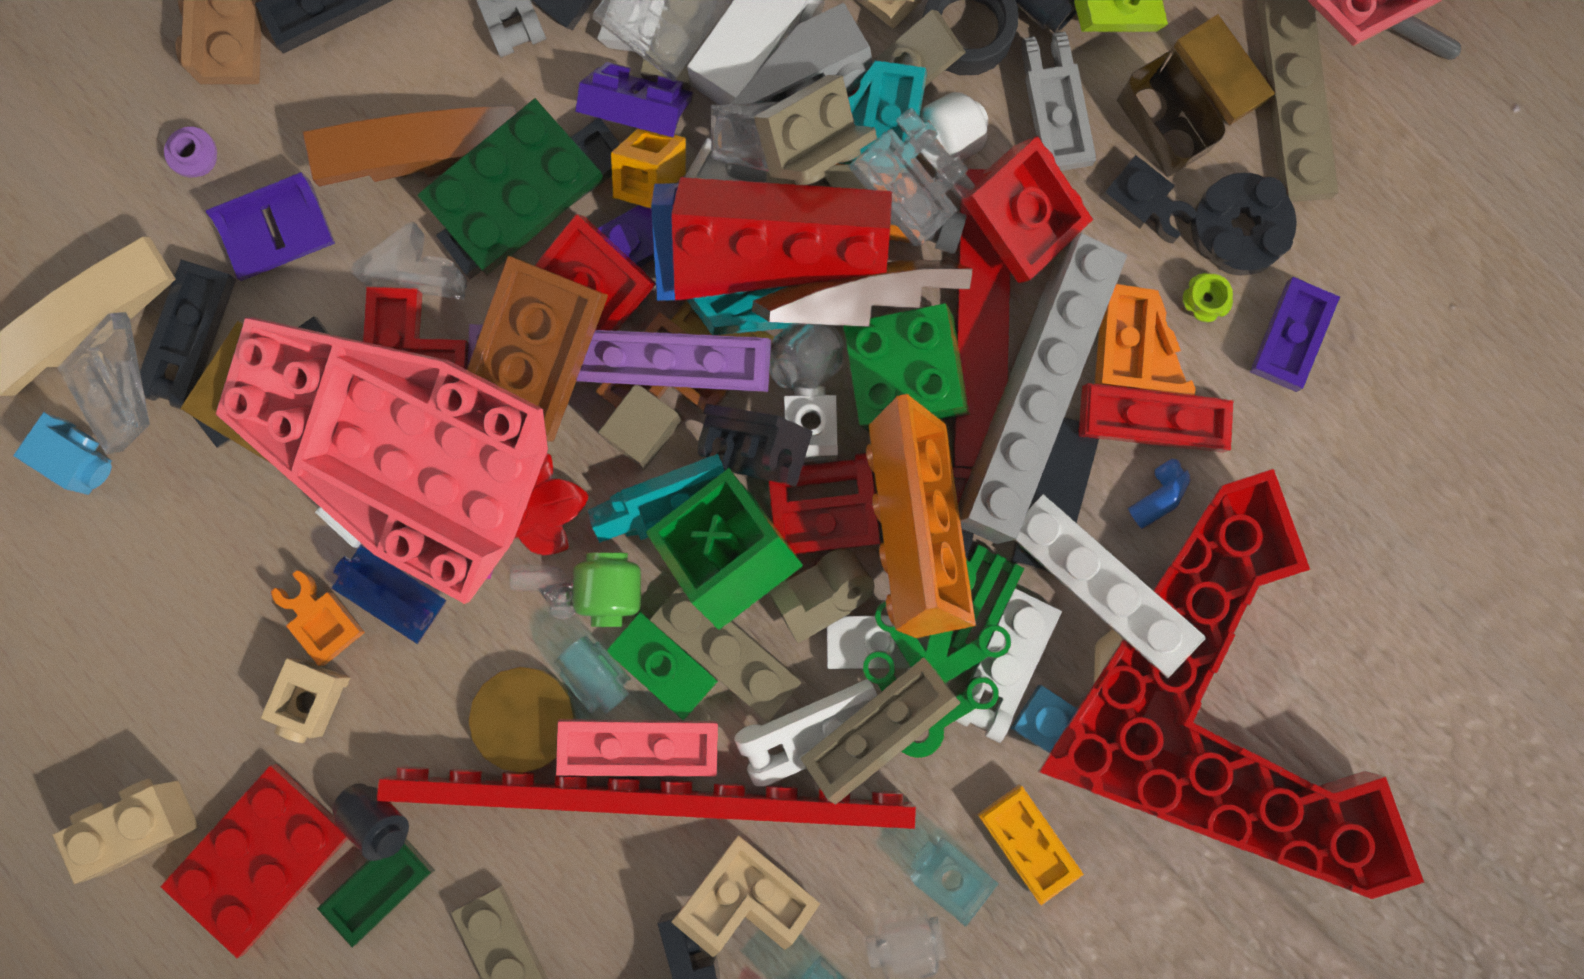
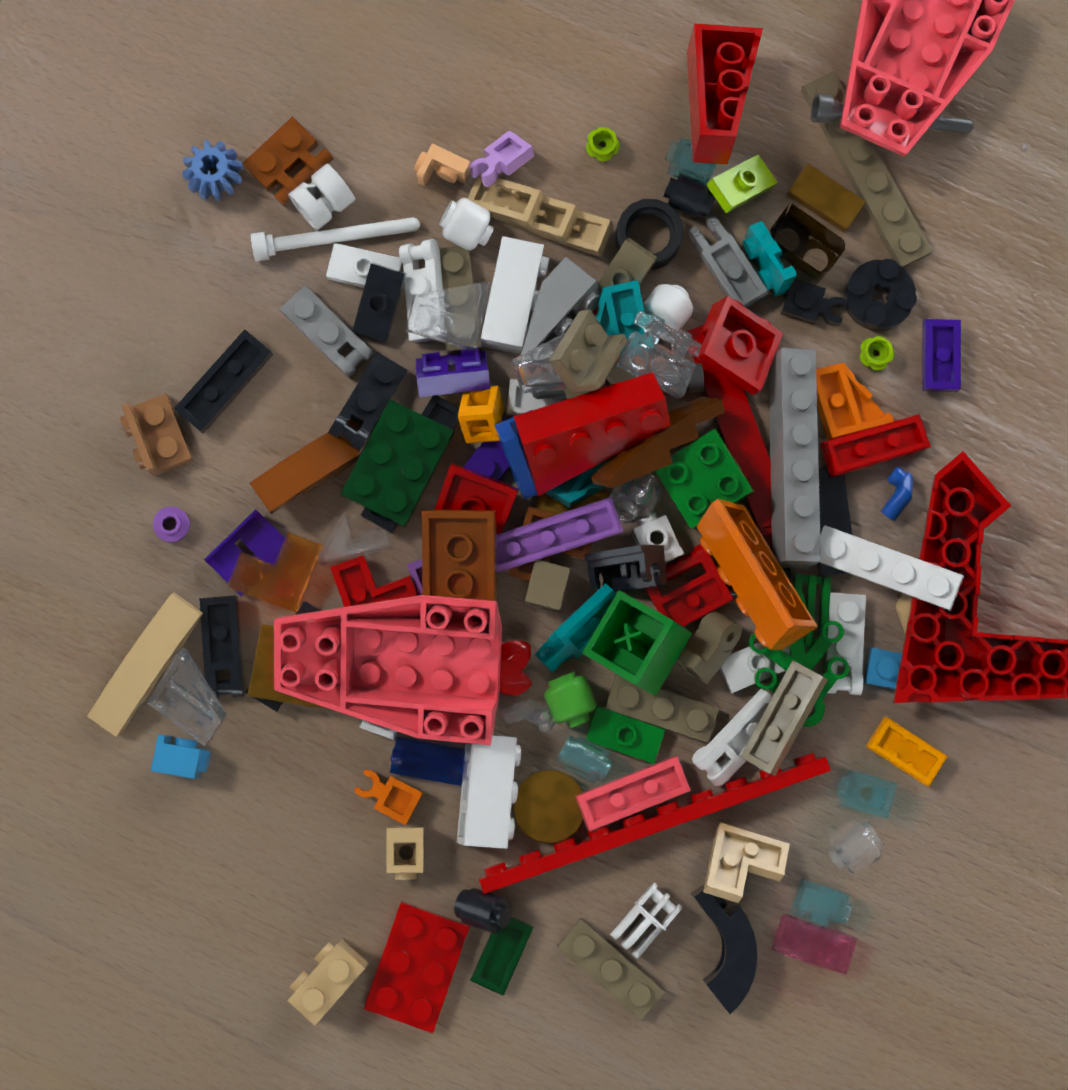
camera: 25 degrees left, 0 degrees up
(290, 280) = (278, 582): none -> clear orange plate
(446, 669) = (488, 793): none -> white brick
(534, 73) = (368, 400): none -> black plate
(587, 924) = (662, 901): none -> white arm
(1112, 99) = (766, 252): none -> teal wing

